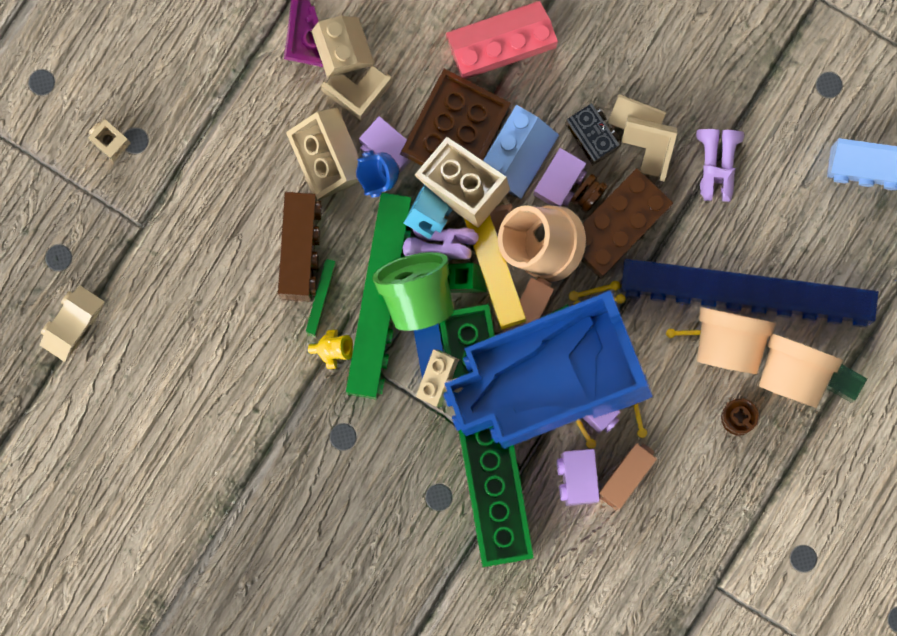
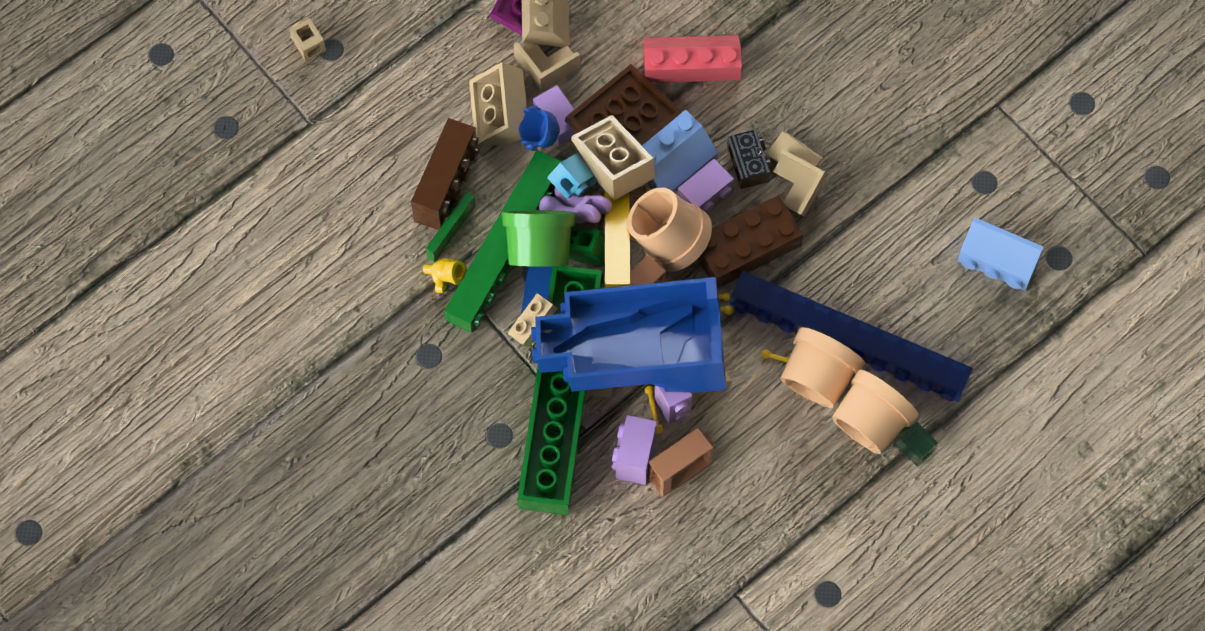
camera: 20 degrees right, 15 degrees down
(64, 333) = (223, 175): tan brick -> none
(591, 195) = (727, 206): reddish brown wheel -> none
(641, 432) = (712, 394): yellow hinge -> none
(714, 174) = (849, 224): lavender piece -> none
(739, 417) = (806, 445): reddish brown wheel -> none

